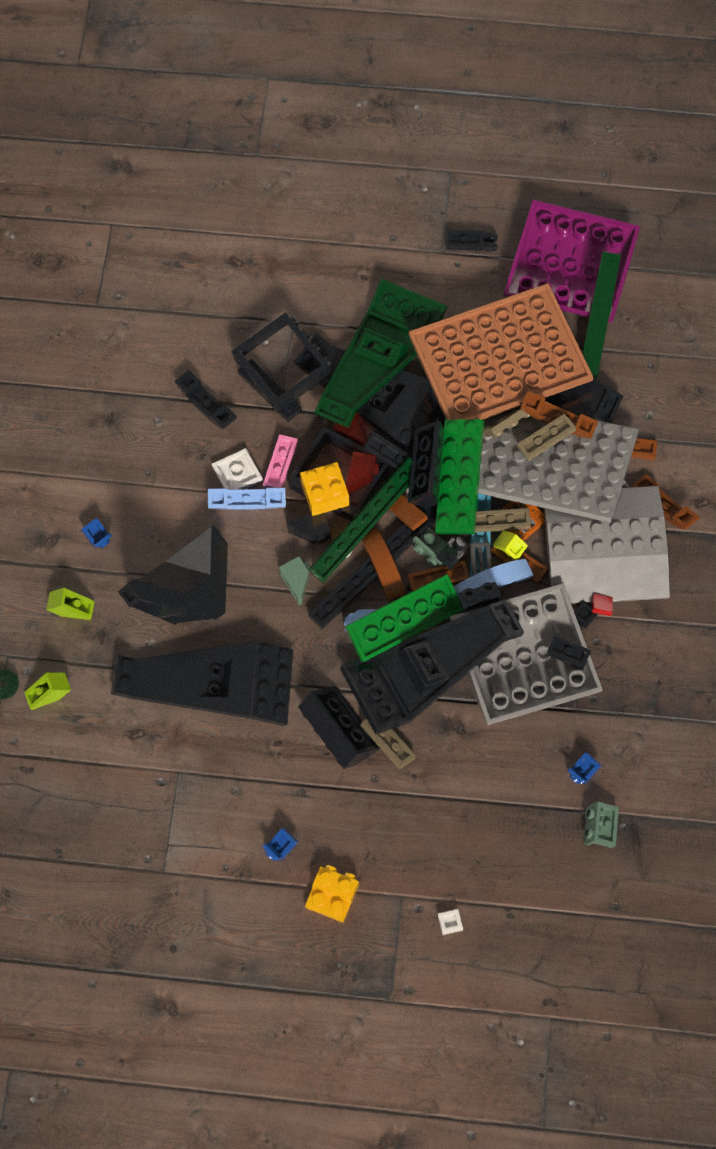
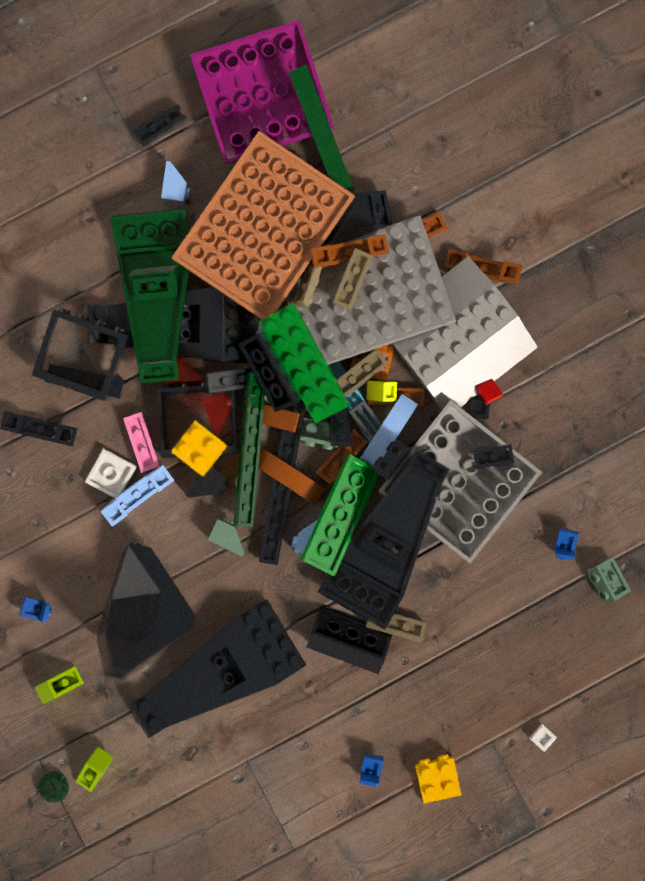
camera: 30 degrees left, 20 degrees up
(449, 290) = (174, 186): none -> light blue slope

